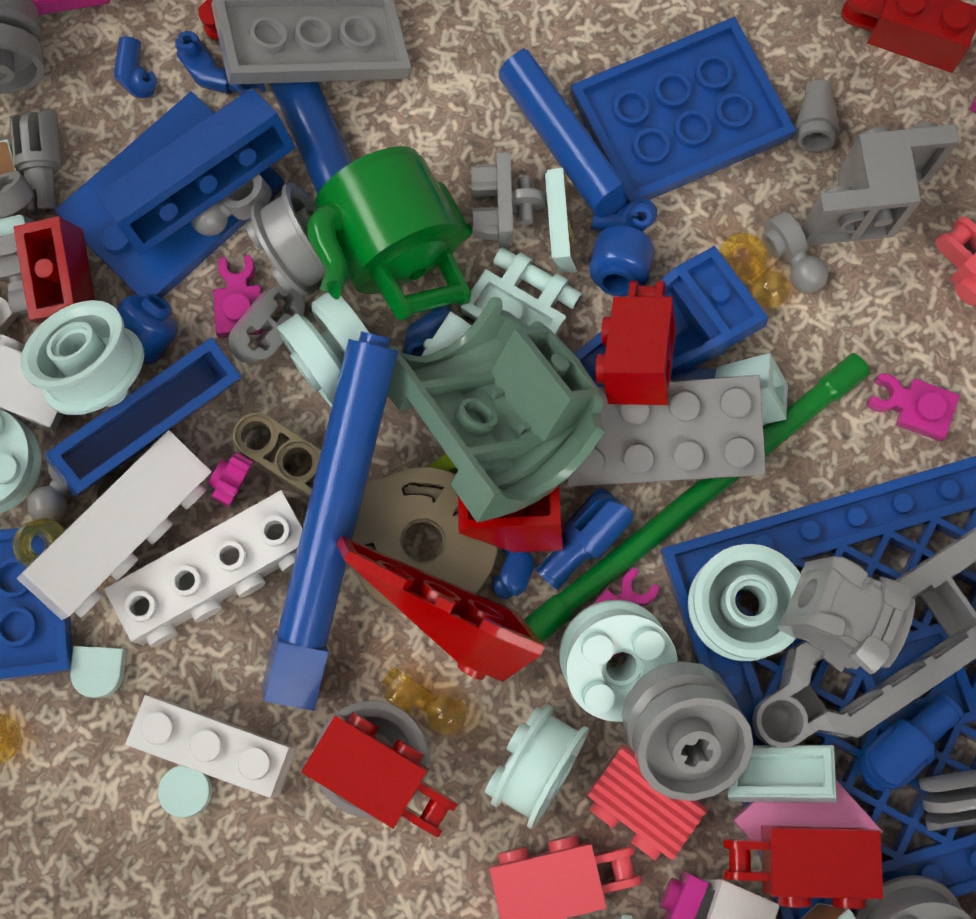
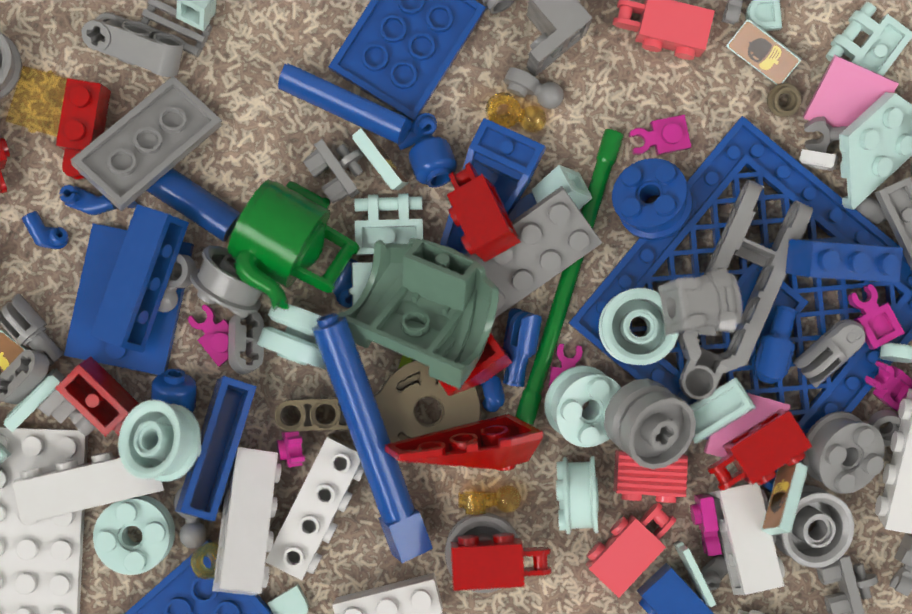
camera: 35 degrees left, 10 degrees up
(860, 464) = (648, 179): none -> blue wheel

